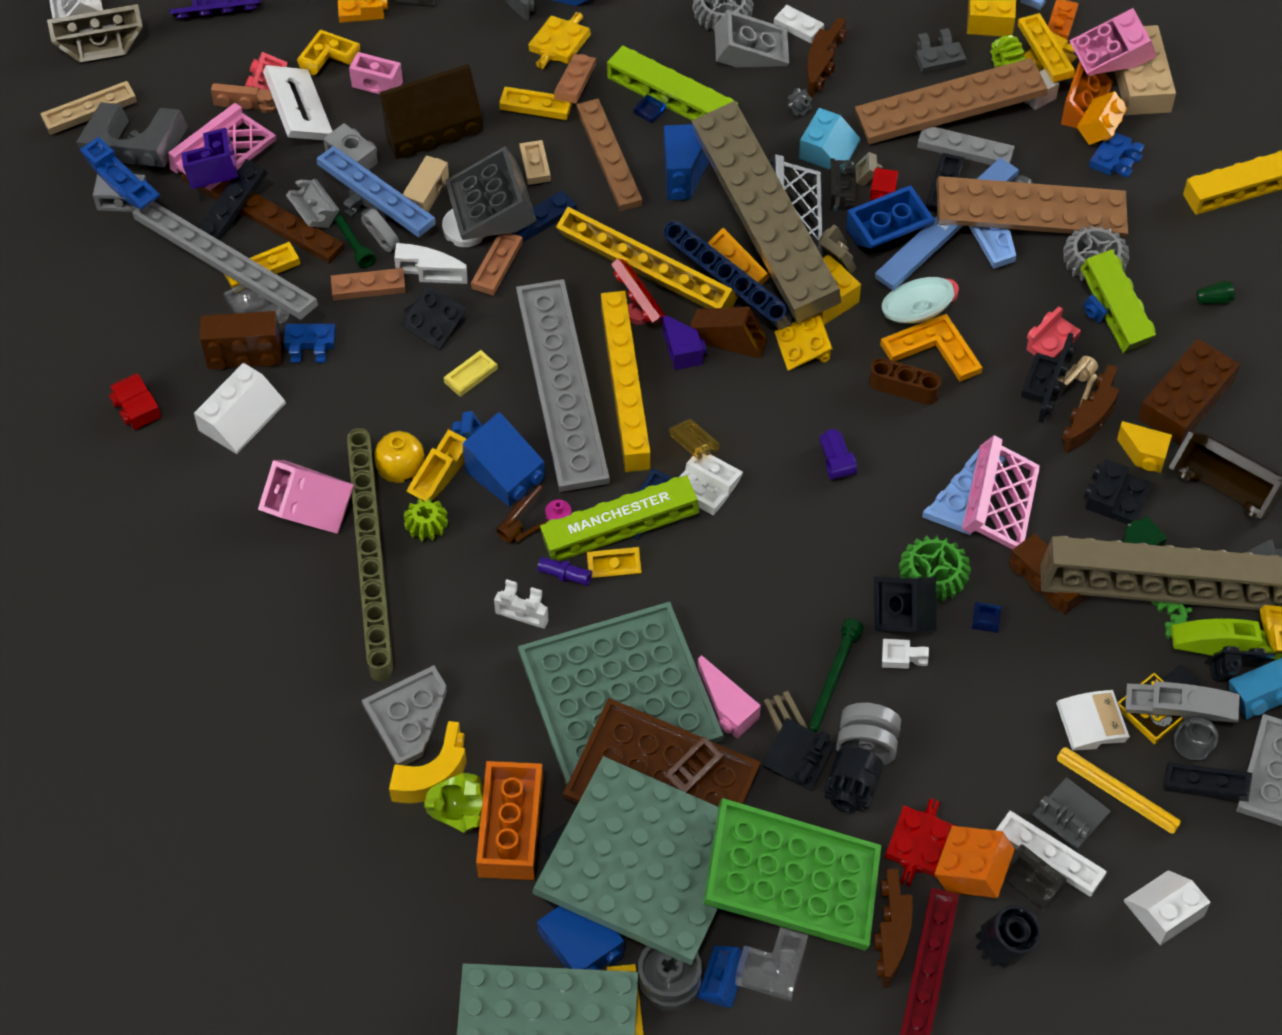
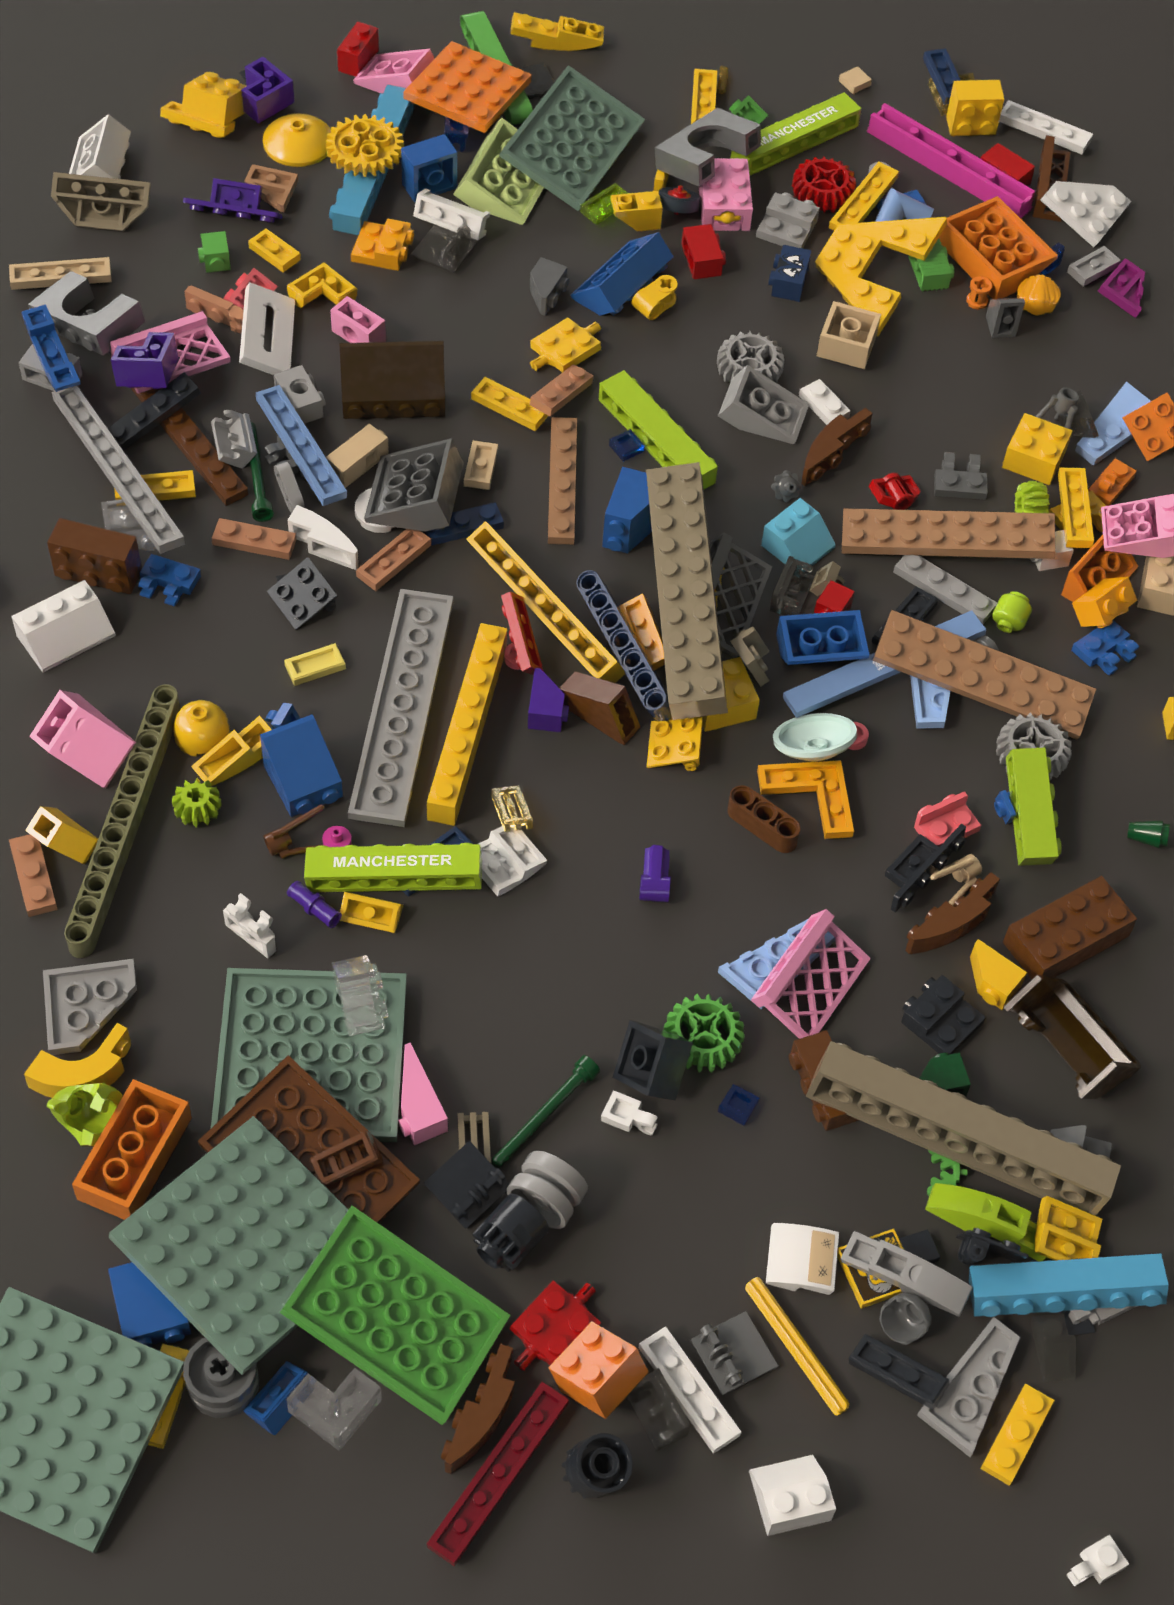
camera: 15 degrees right, 0 degrees up
(218, 48) = (214, 252): none -> bright green brick
(270, 32) = (274, 250): none -> yellow plate
(311, 625) = (33, 875): none -> nougat plate
(325, 582) = (62, 834): none -> yellow slope
(645, 628) = (358, 988): none -> clear brick
(890, 79) = (893, 485): none -> red piece
(1030, 149) = (1012, 612): none -> lime head

